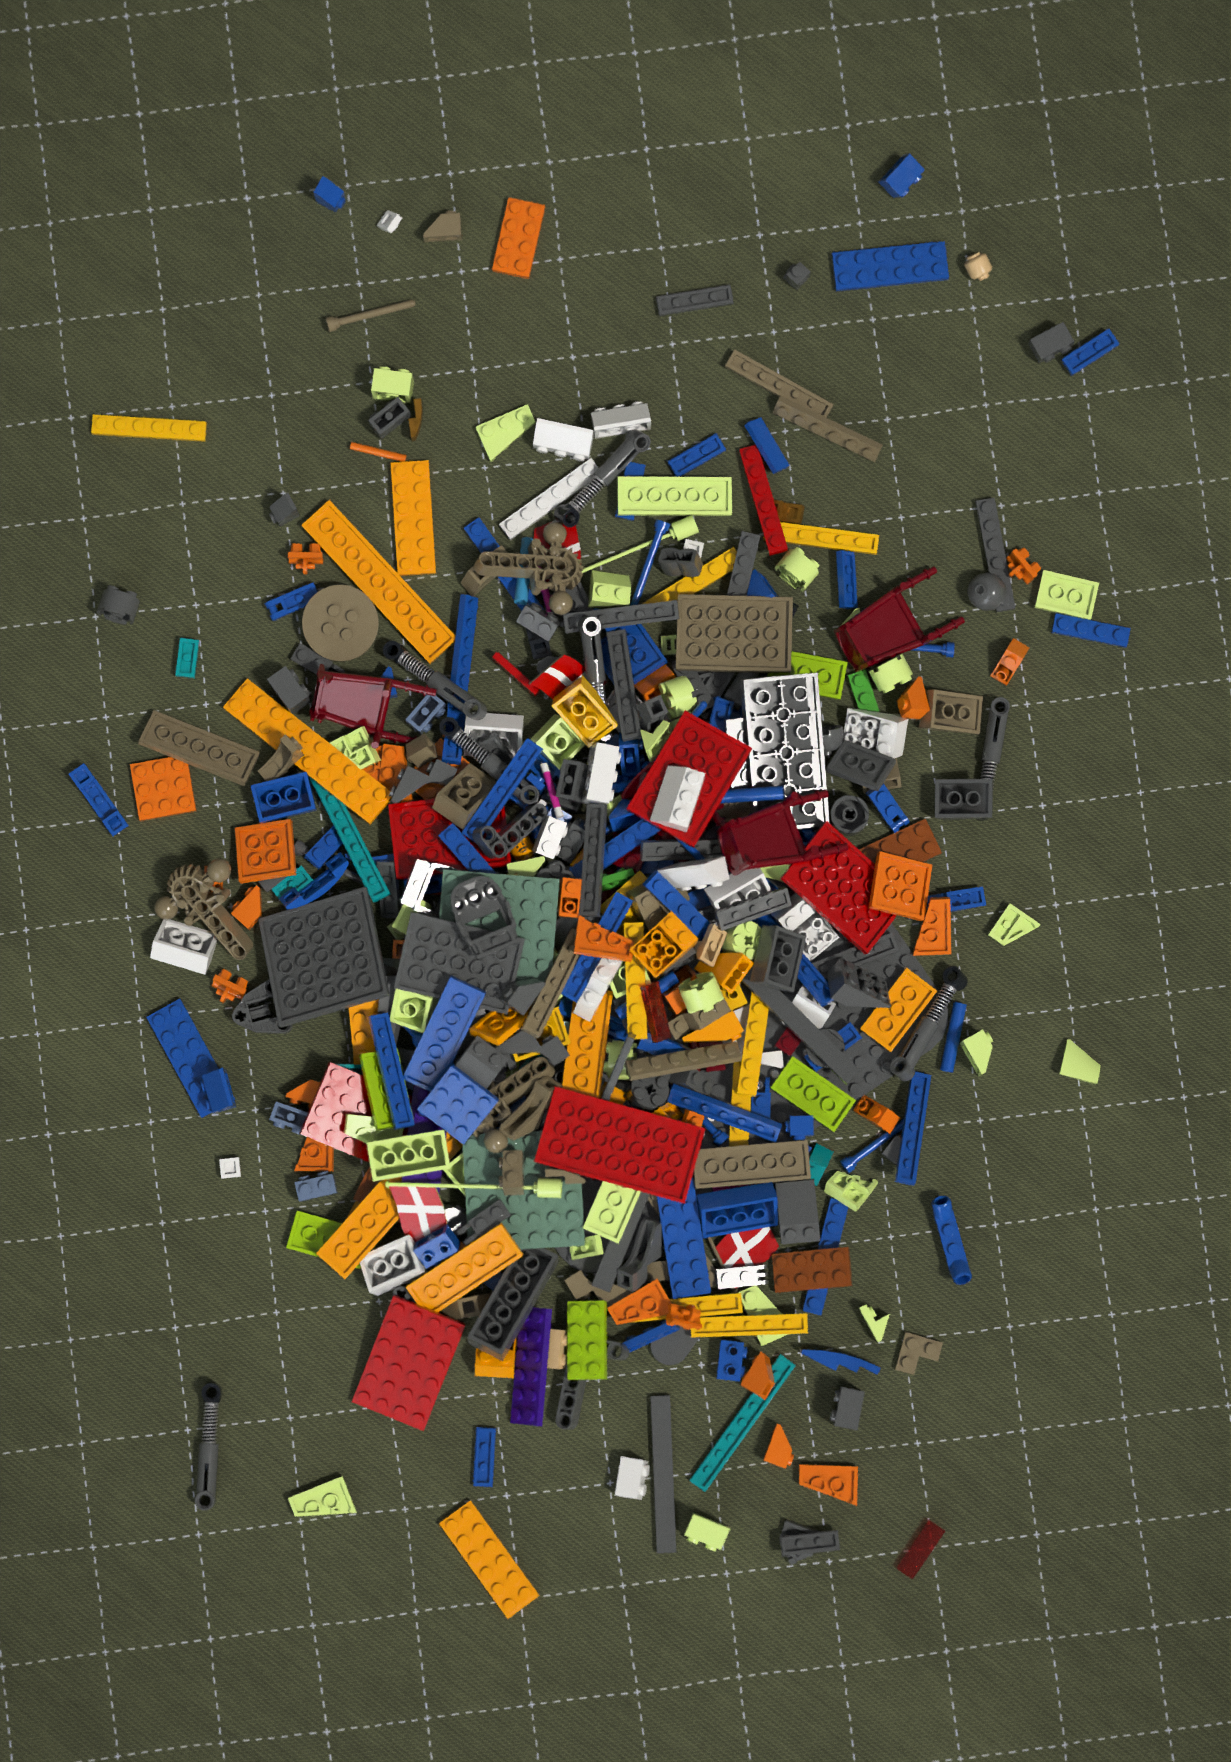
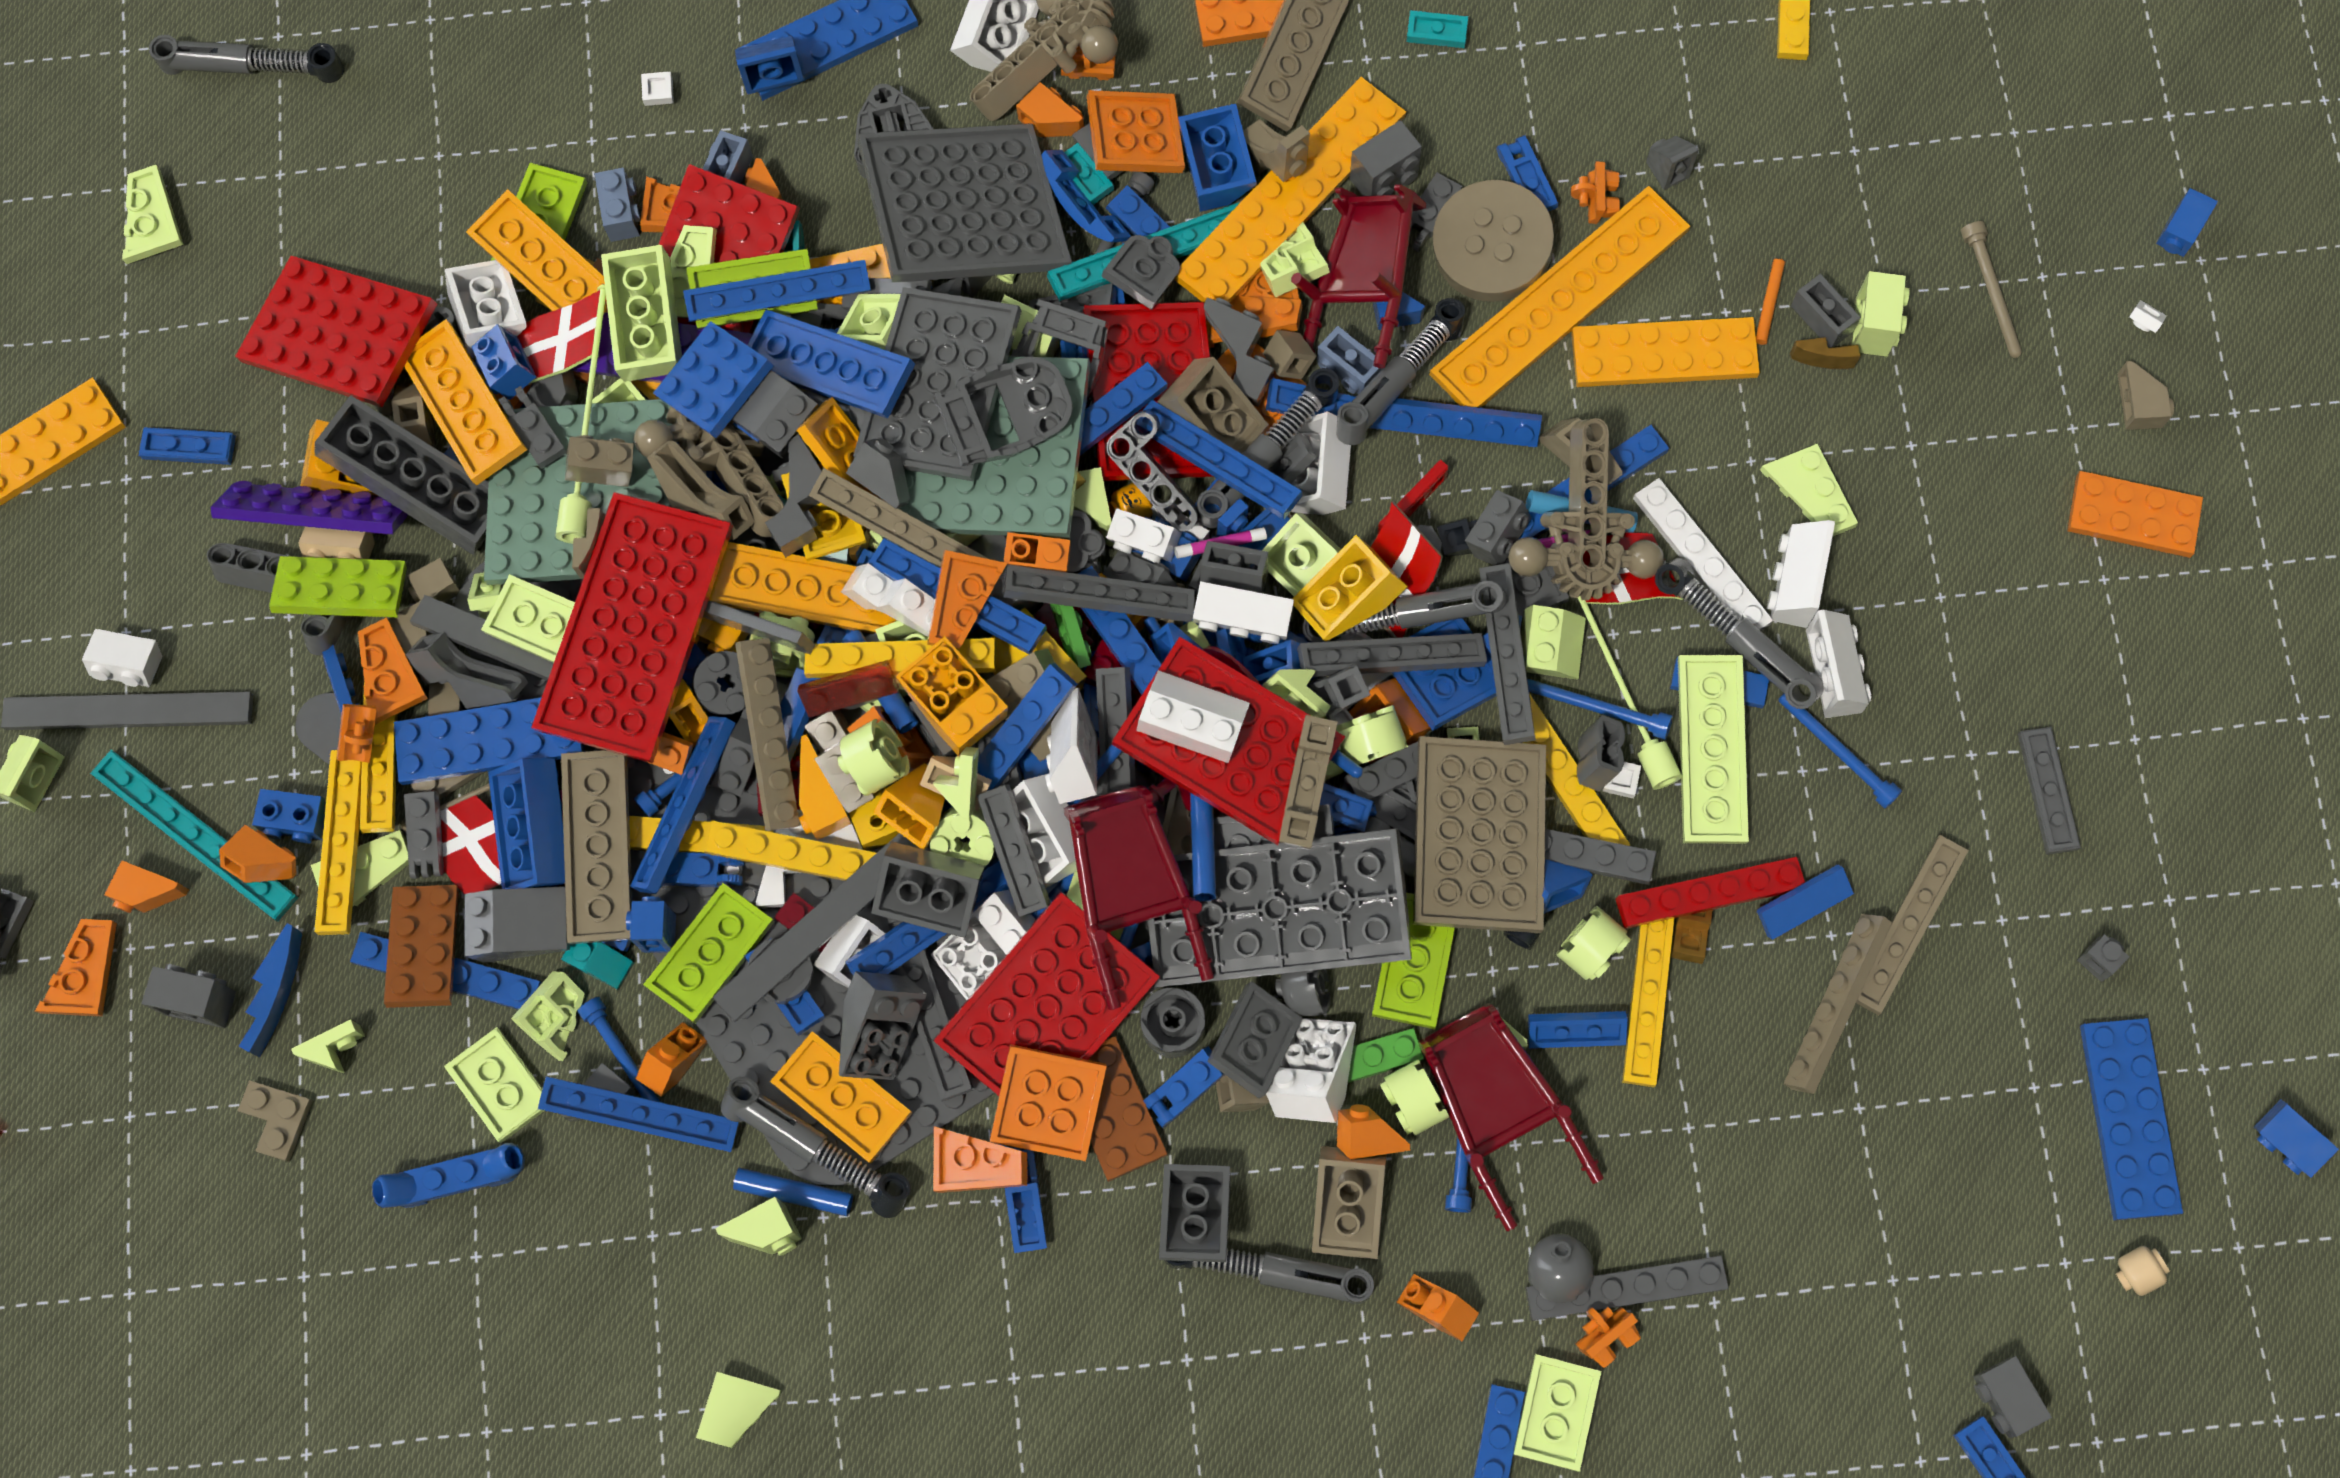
camera: 95 degrees right, 10 degrees down
(228, 989) = (940, 77): orange hips -> none
(369, 840) = (1143, 268): none -> dark grey plate
(696, 455) = (1783, 789): blue tile -> none
(697, 396) = (1884, 791): none -> blue piece
(717, 731) = (1307, 781): none -> dark tan slope
(718, 940) = (961, 790): none -> yellowish green slope
(893, 1218) = (497, 1084): none -> yellowish green tile
(1012, 926) = (978, 1298): yellowish green wing -> none

